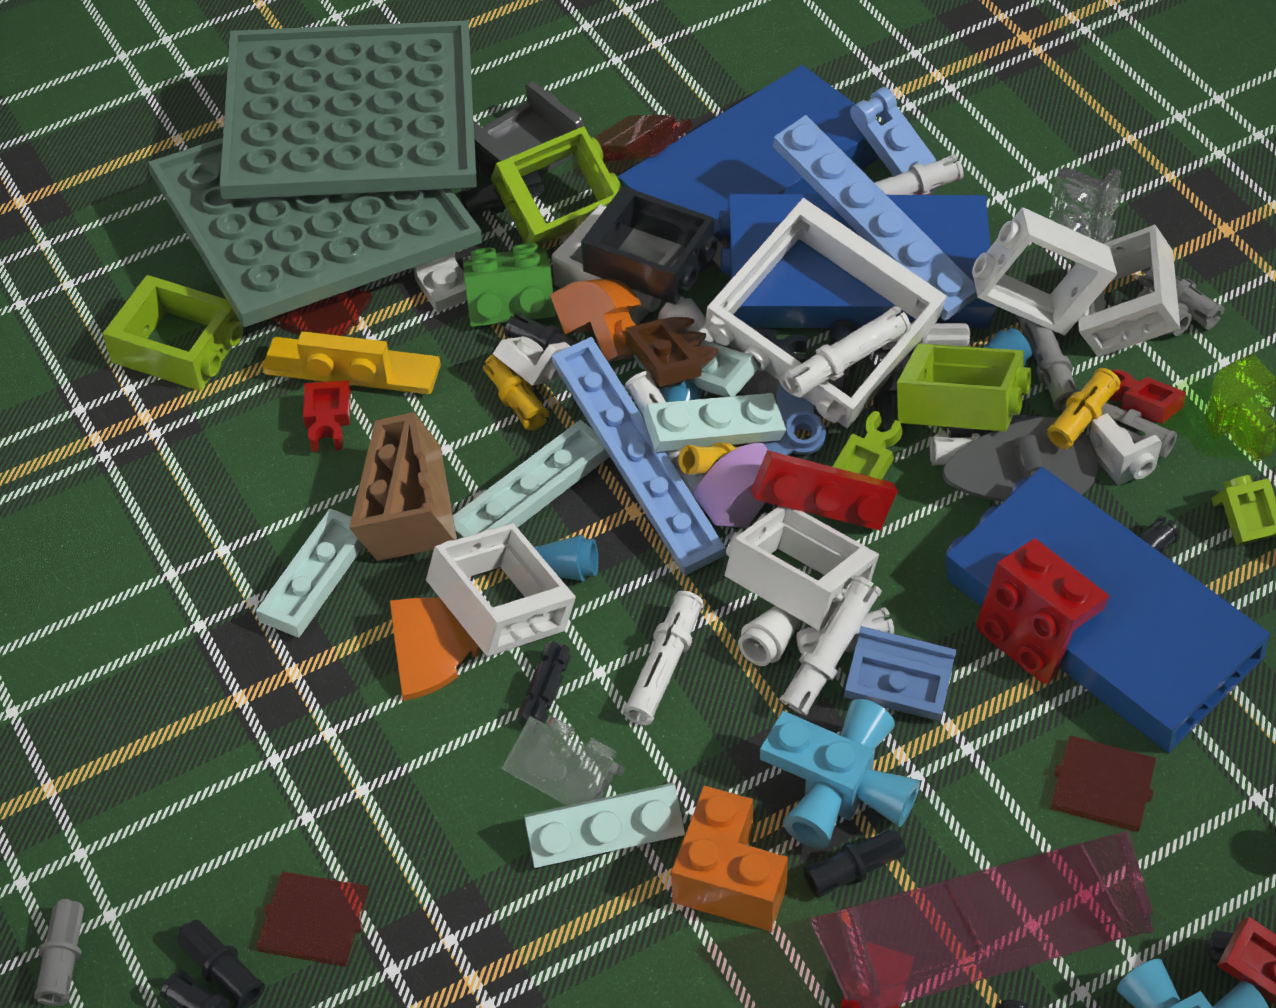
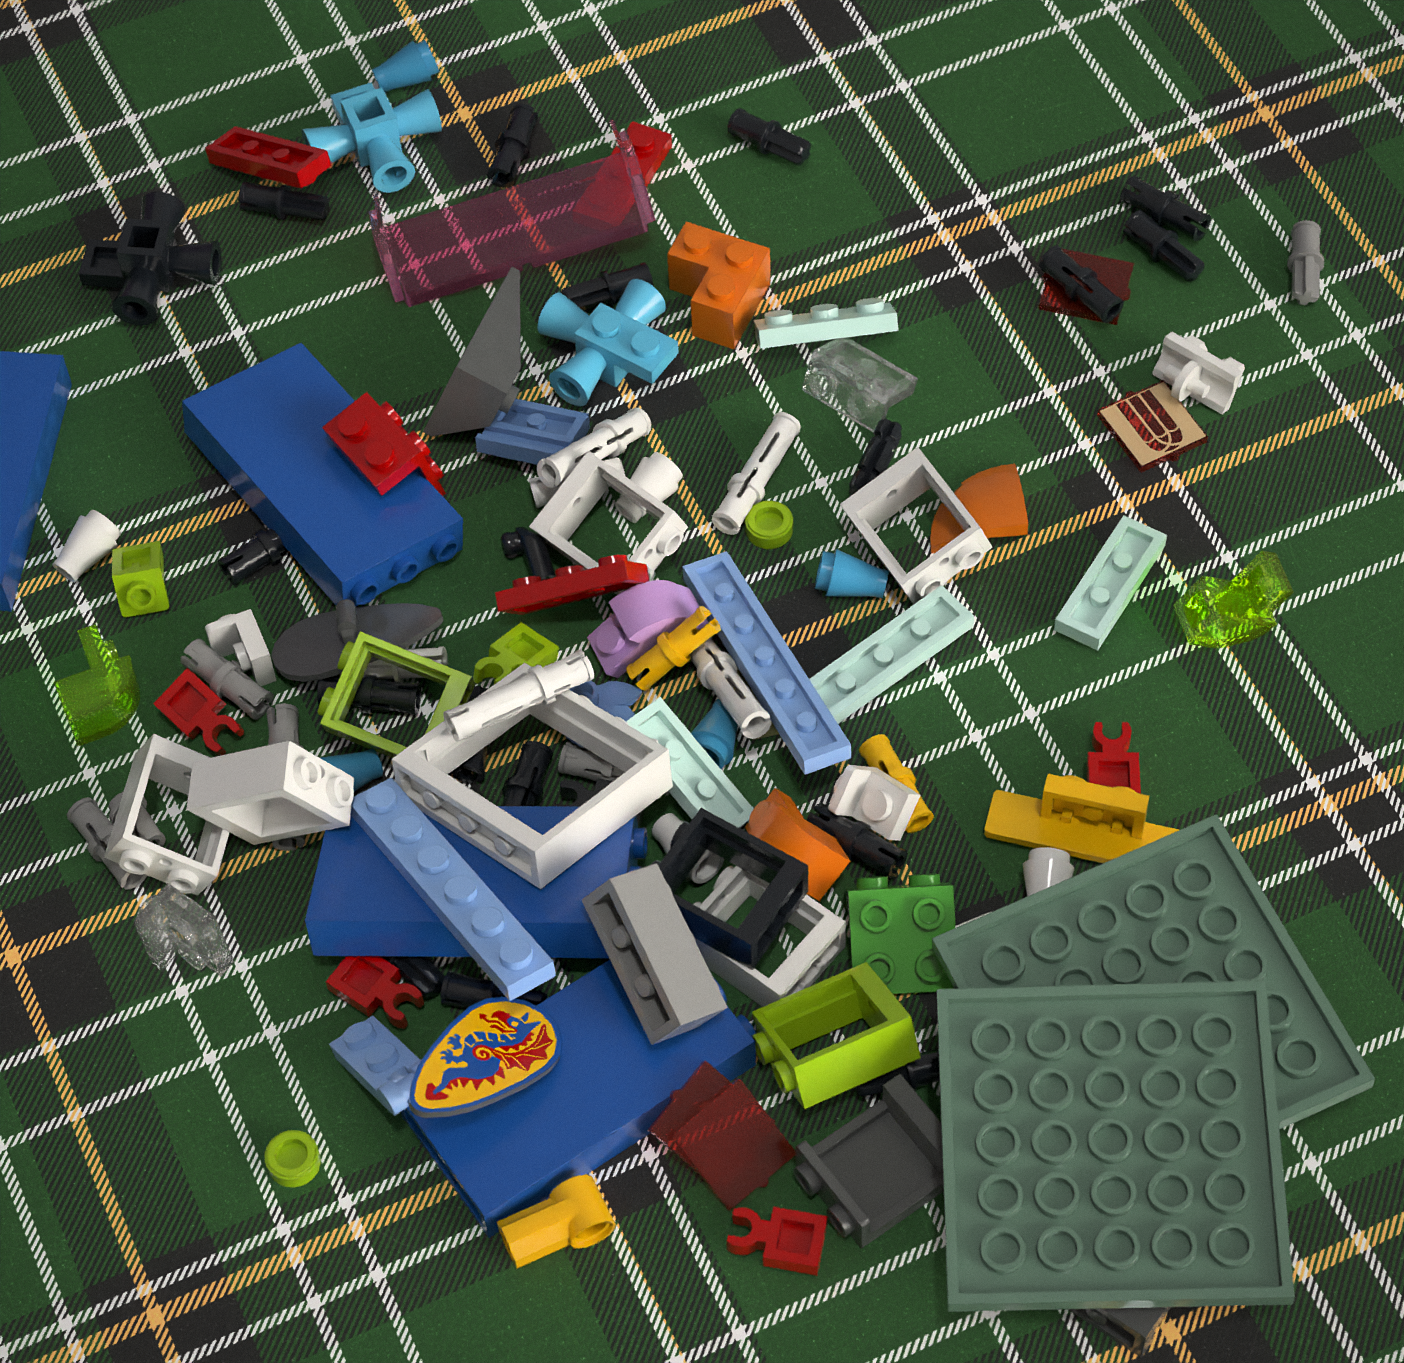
camera: 175 degrees left, 5 degrees up
(153, 298) = (1304, 926): lime window -> none
(203, 549) = (1234, 610): none -> clear neon green brick
(216, 810) = (1197, 372): none -> white hips
(257, 753) = (1152, 426): none -> piece
(319, 894) = (1100, 301): none -> black pin
(389, 320) = (1046, 868): none -> white cone
(402, 491) = (1015, 632): medium nougat wedge -> none
(587, 92) = (789, 1240): none -> red plate
(644, 613) = (769, 524): none -> lime tile
(670, 349) = (717, 757): reddish brown plate -> none
(697, 171) = (654, 953): none -> light grey brick
(713, 421) = (678, 676): light aqua plate -> none
(731, 88) = (570, 1216): none -> yellow piece
(831, 101) = (485, 1057): none -> shield
(886, 574) = (532, 548): none -> black arm
(923, 178) = (389, 994): white pin -> none
(955, 119) = (292, 1158): none -> lime tile
(967, 710) = (486, 369): none -> dark grey wedge
(1083, 408) = (273, 667): yellow pin -> none
(1103, 783) = (370, 348): clear red piece -> none

